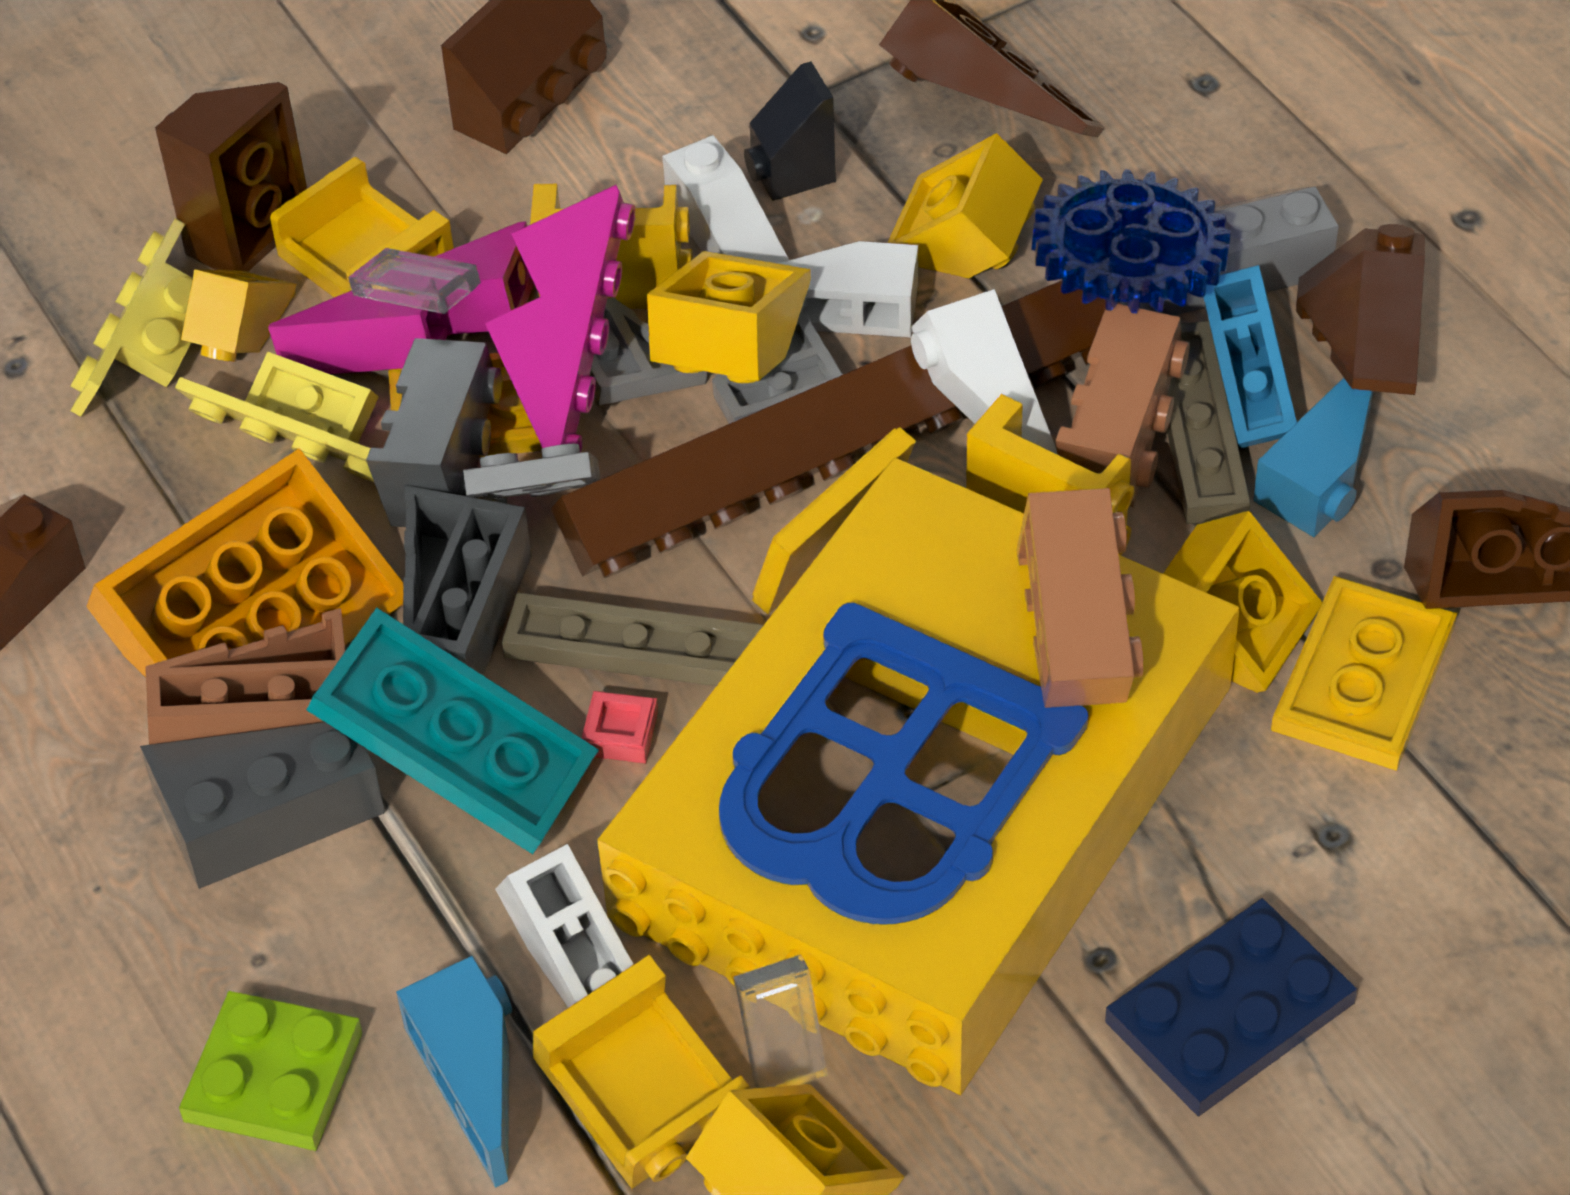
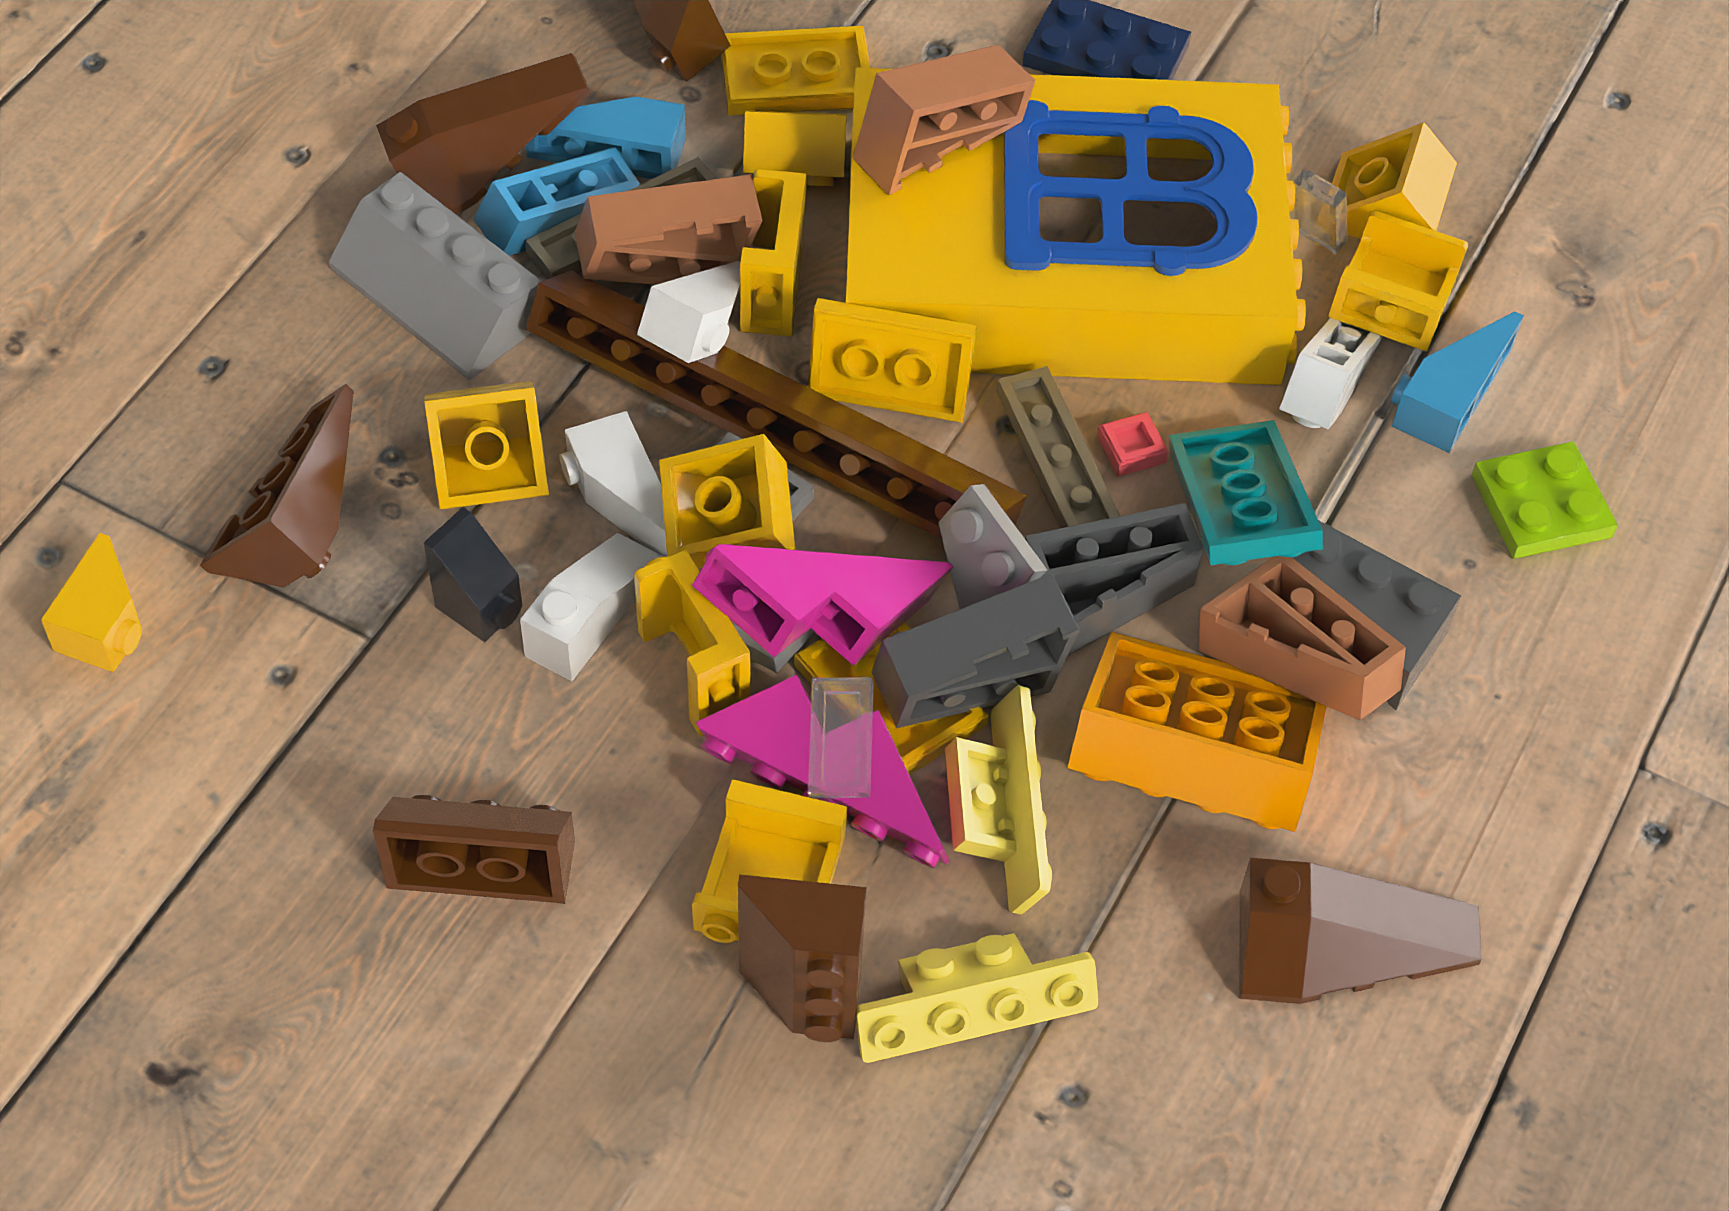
camera: 125 degrees left, 5 degrees up
(232, 311) = (921, 912): yellow slope -> none
(1130, 240) = (522, 251): clear blue gear -> none

